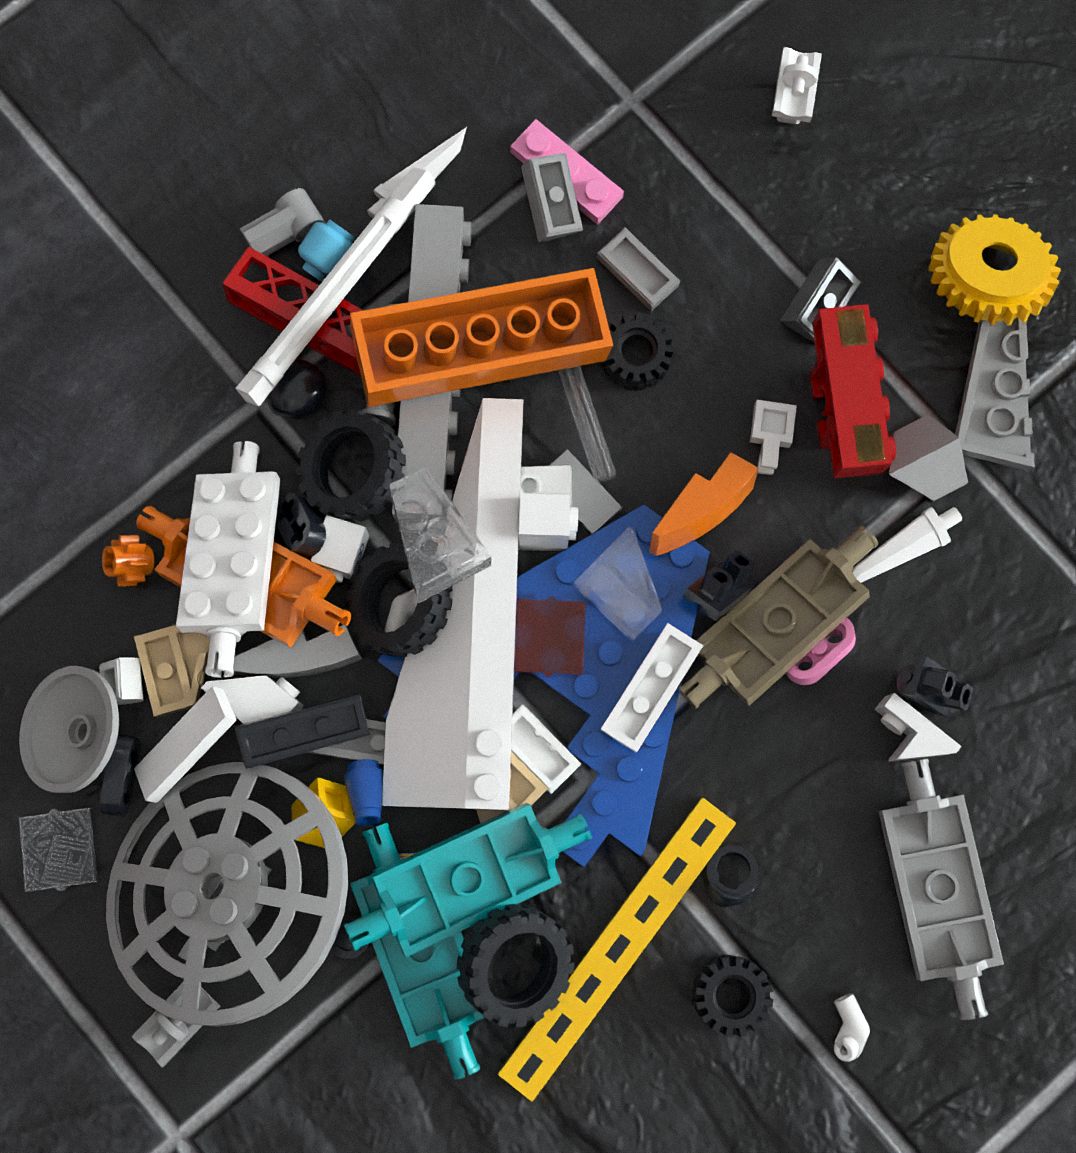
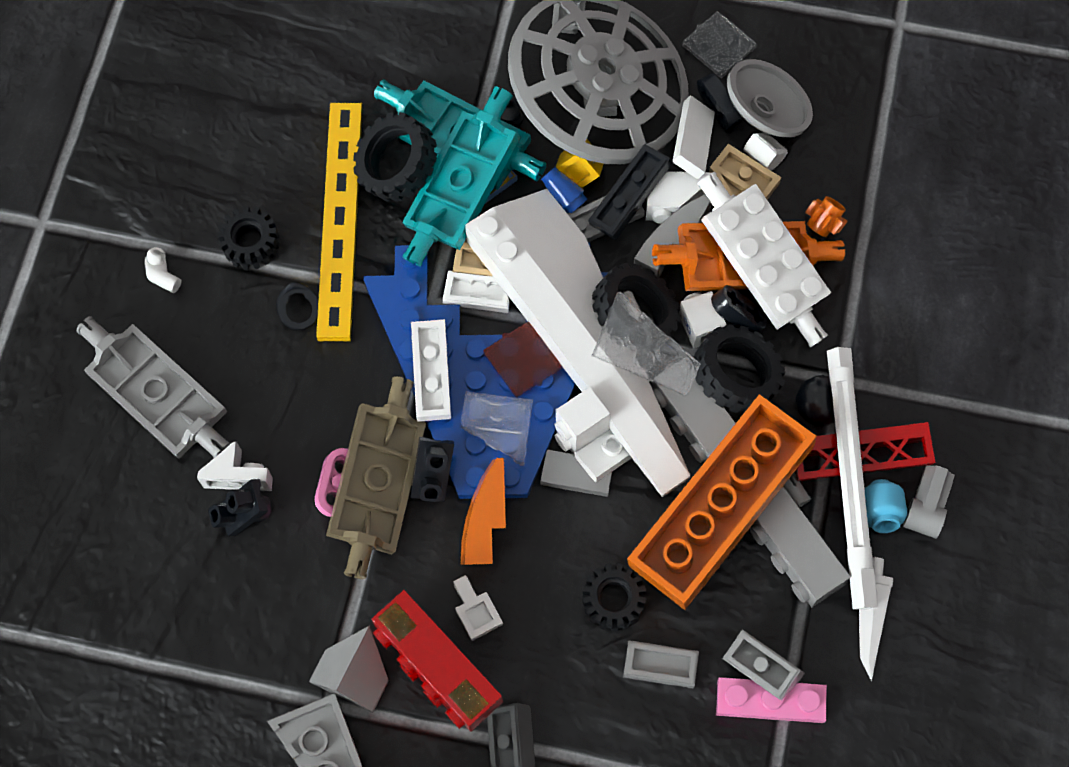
camera: 150 degrees right, 10 degrees down
(587, 424) = (602, 519): clear axle -> none
(915, 539) = (319, 613): white bar -> none

